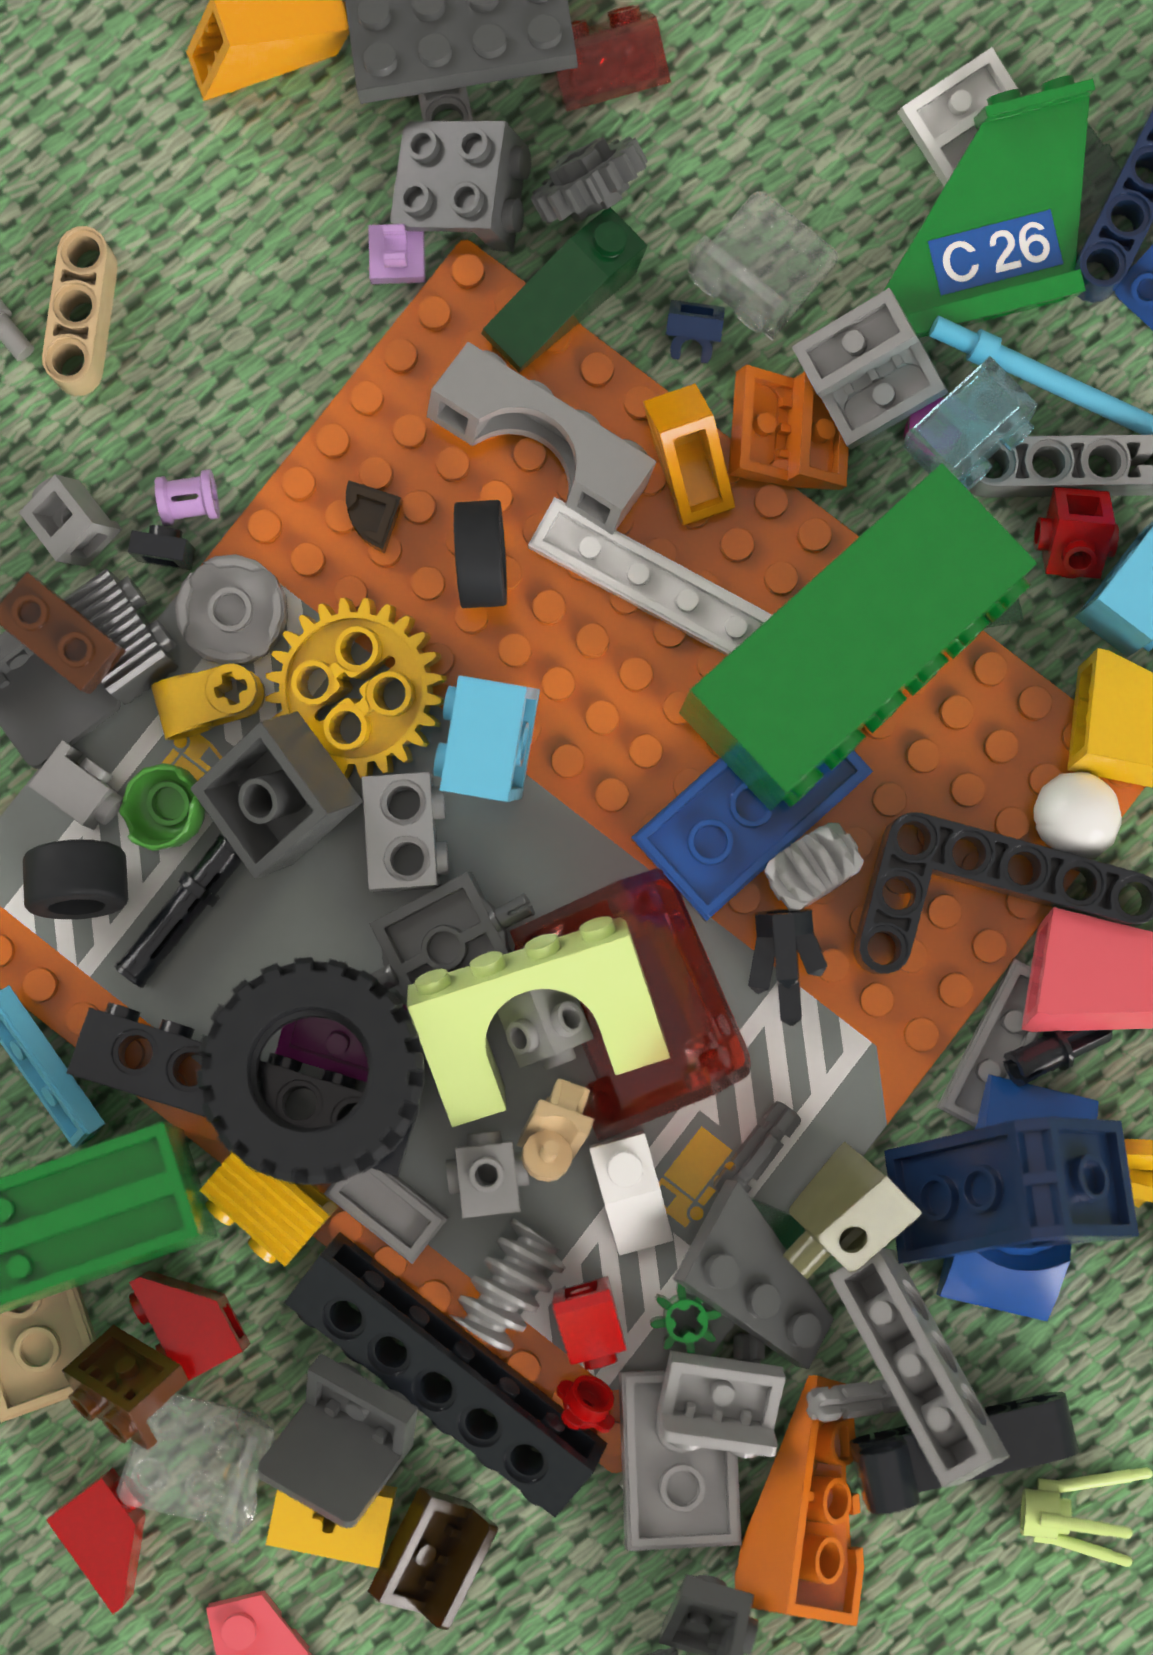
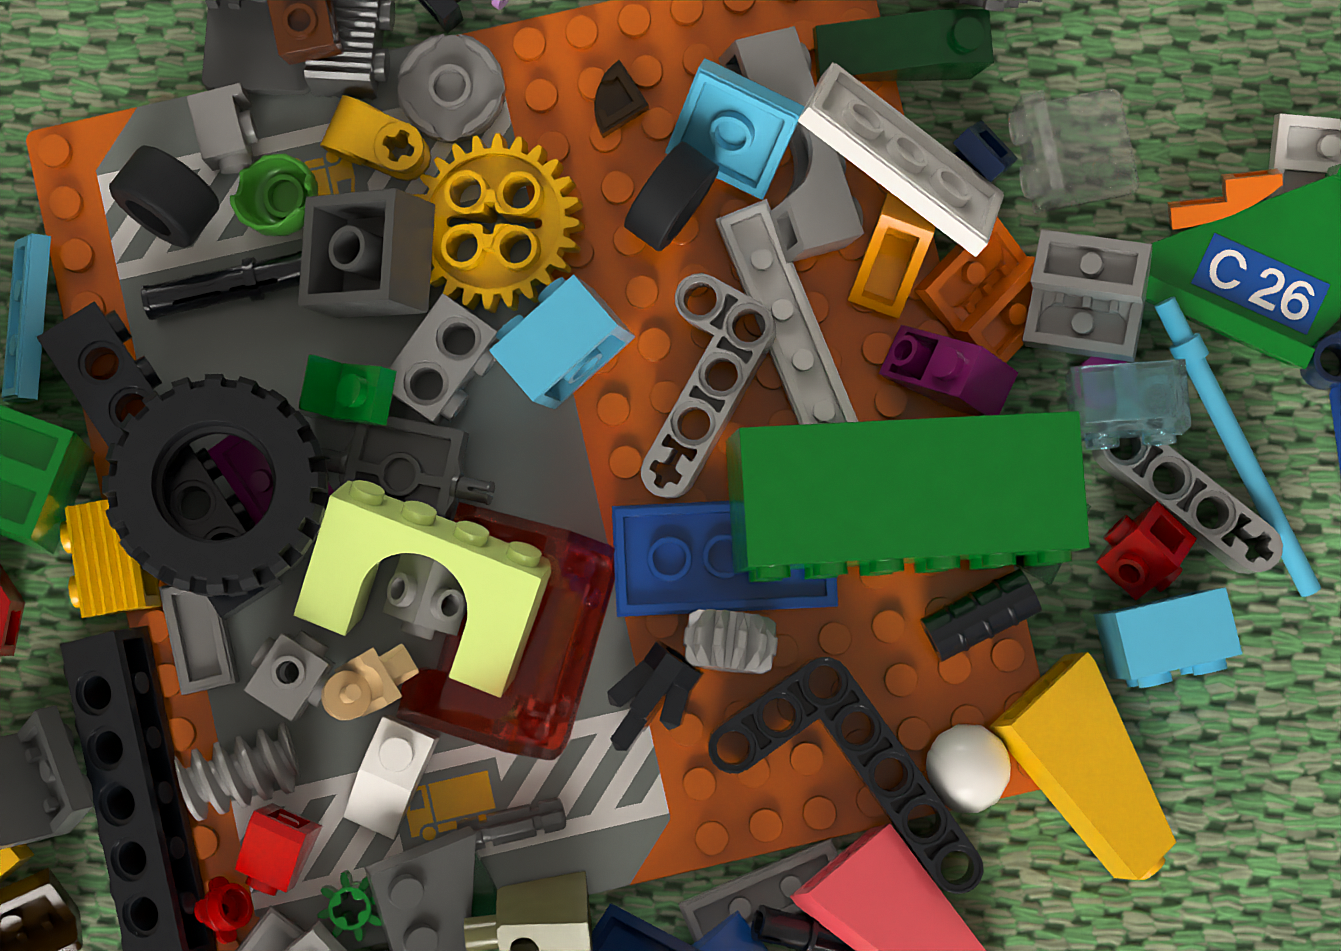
camera: 30 degrees right, 0 degrees up
(351, 915) = (346, 391): none -> green slope
(487, 457) = (736, 126): none -> medium azure tile
(628, 692) = (698, 393): none -> light grey beam
(639, 377) = (903, 158): none -> white tile
(810, 516) = (949, 371): none -> magenta slope
(921, 196) = (1238, 192): none -> orange slope
(990, 687) = (981, 614): none -> black axle

